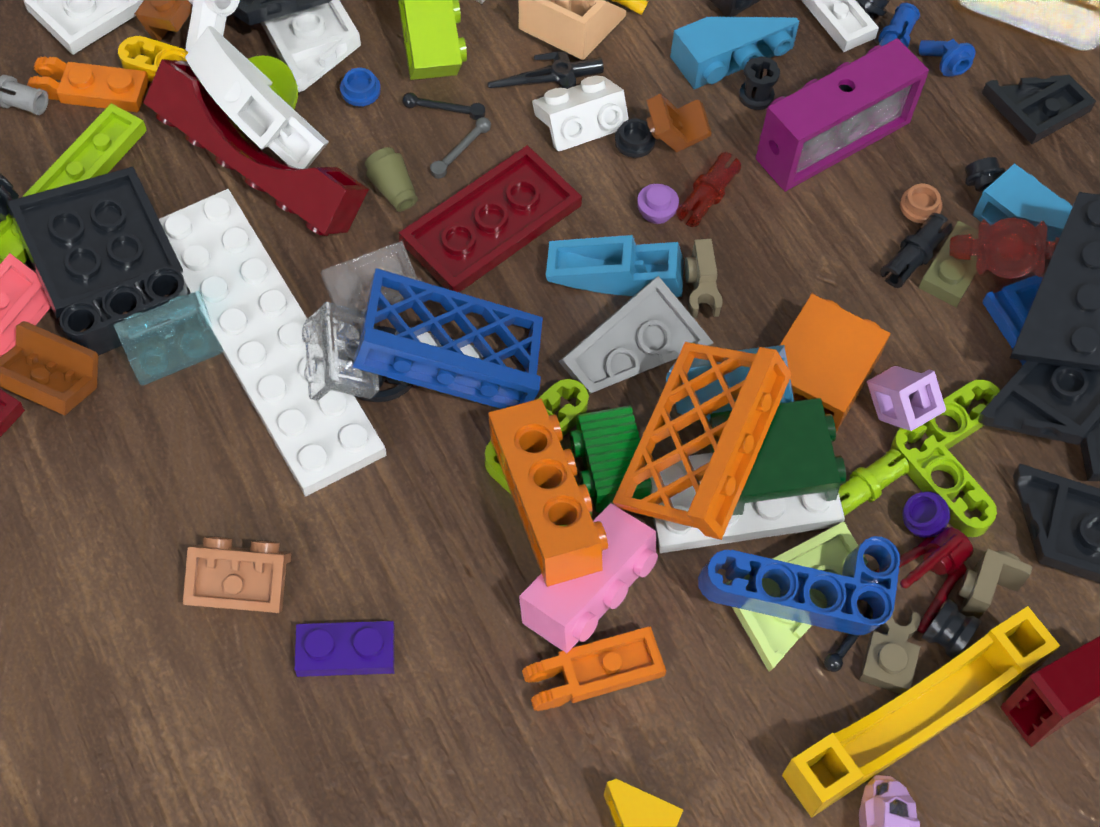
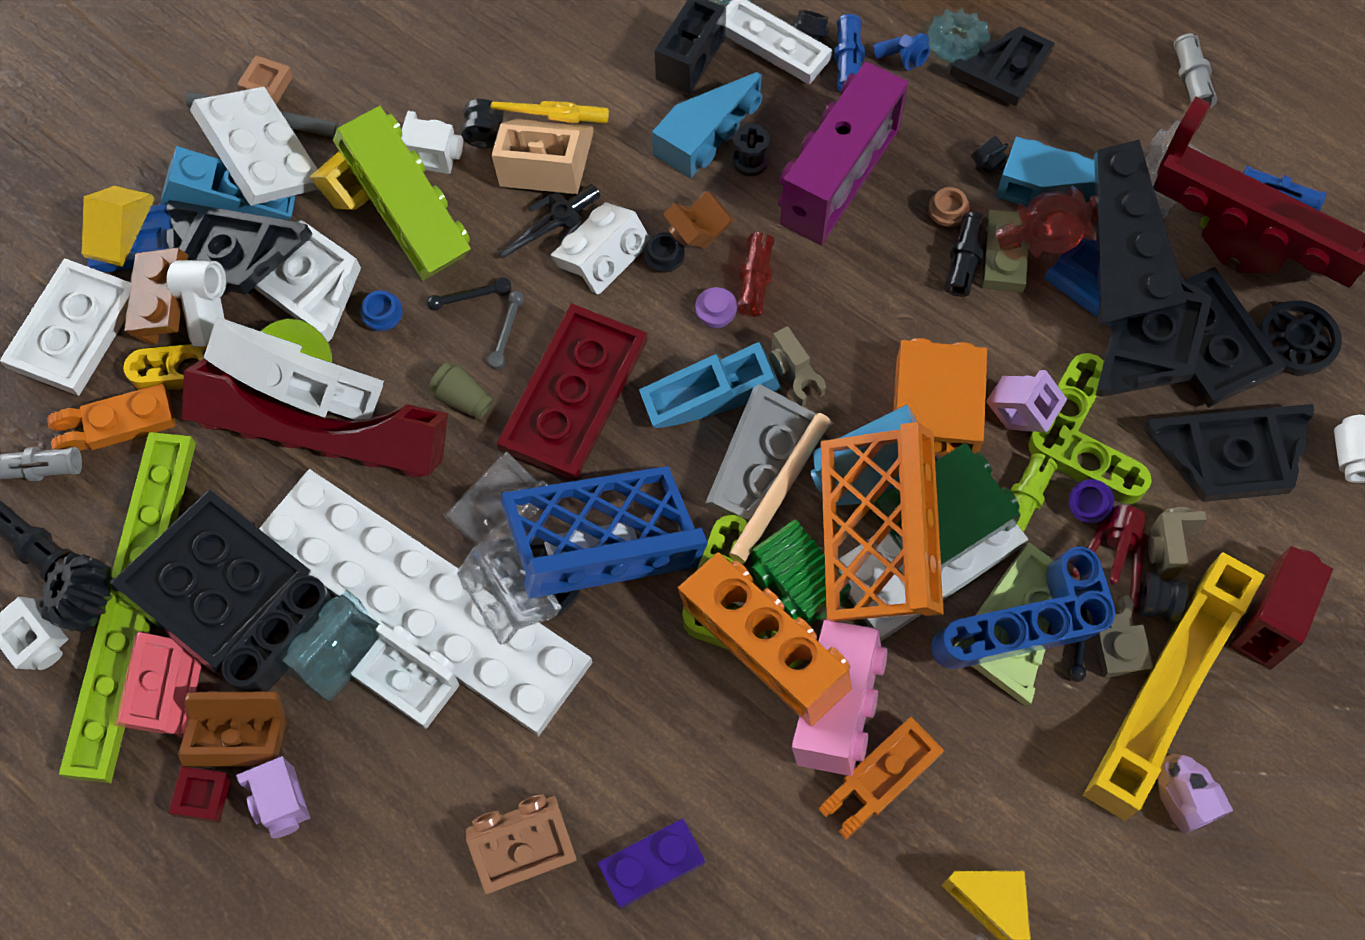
camera: 20 degrees left, 5 degrees up
(51, 440) = (275, 797): none -> lavender brick
(216, 392) = (406, 675): none -> white bracket
(629, 376) = (779, 488): none -> light nougat bar
(993, 66) = (953, 46): none -> clear light blue gear

